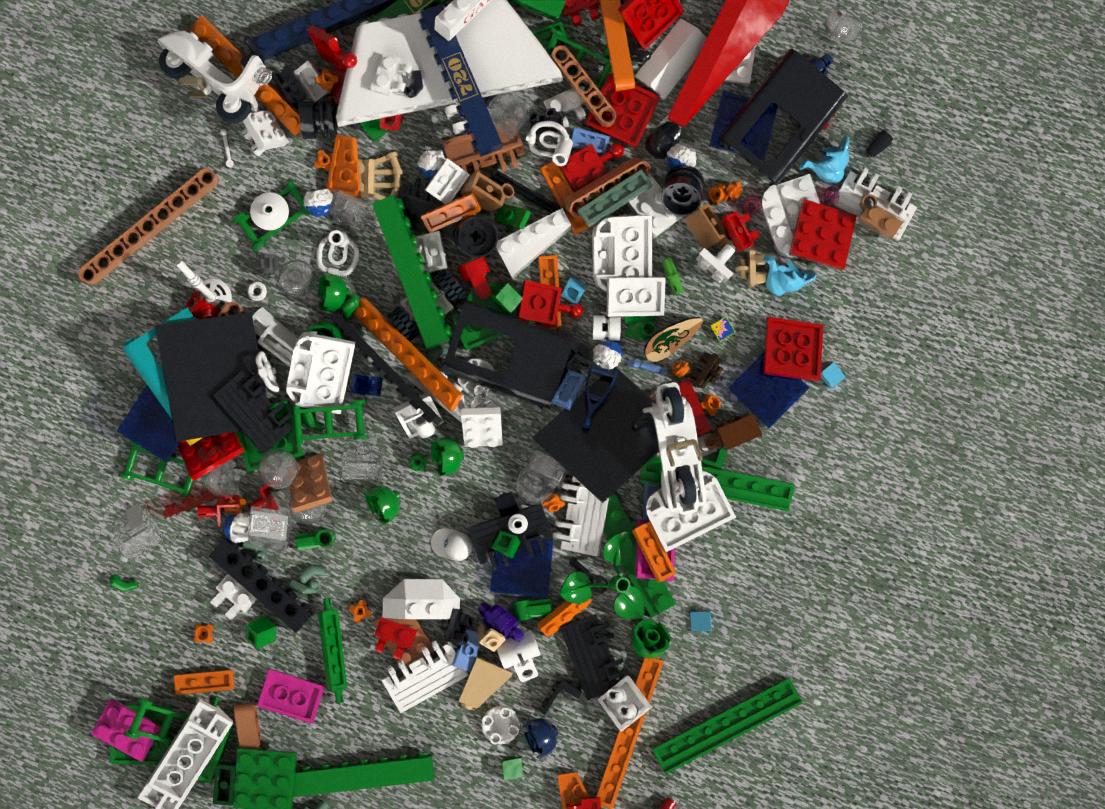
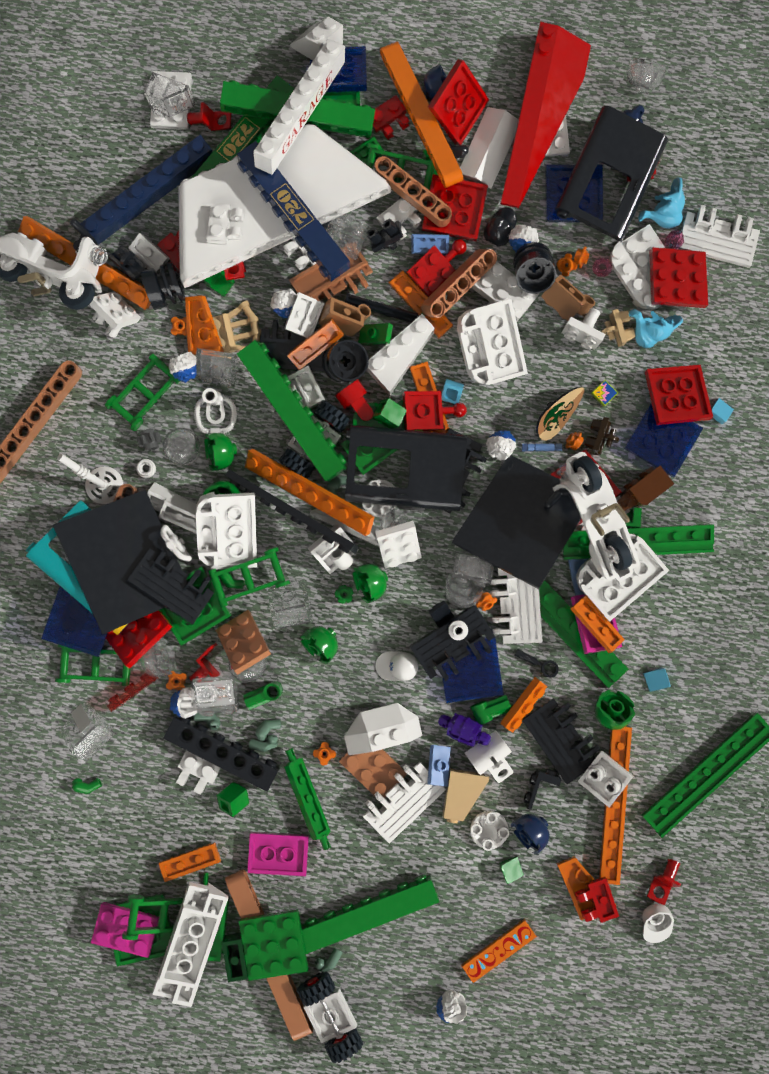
camera: 15 degrees left, 0 degrees up
(202, 309) = (96, 498): red bracket -> none
(203, 638) = (173, 819): orange plate -> none
(215, 510) = (158, 692): red bracket -> none
(229, 163) = (88, 351): white hinge -> none
(276, 217) = (143, 395): white dish -> none
(278, 468) = (210, 635): clear cylinder -> none
(327, 85) = (162, 251): orange plate -> none
(329, 50) = (156, 215): red plate -> none
(349, 306) = (239, 460): green arm -> none
(366, 385) = (275, 532): clear blue bracket -> none
(396, 633) = (365, 767): red plate -> none
(416, 86) = (251, 227): black arm -> none
(454, 629) = (421, 747): black hips -> none
(489, 637) = (458, 748): tan bracket -> none
(506, 544) = (451, 652): green slope -> none
(563, 145) = (407, 256): white piece -> none
(569, 389) = (473, 487): medium blue plate -> none
(596, 398) = (500, 488): dark blue piece -> none
(613, 327) = (500, 419): white wheel -> none
(615, 198) = (471, 291): sand green plate -> none
(630, 601) = (583, 681): green plant -> none
(635, 296) = (514, 381): white plate -> none
(636, 326) = (523, 406): green plate -> none
(672, 276) = (543, 354): bright green axle -> none
(711, 404) = (612, 467): orange plate -> none
(737, 231) = (591, 288): red plate -> none
(879, 143) = (708, 177): black cone -> none
(879, 219) = (728, 249): medium nougat hinge -> none

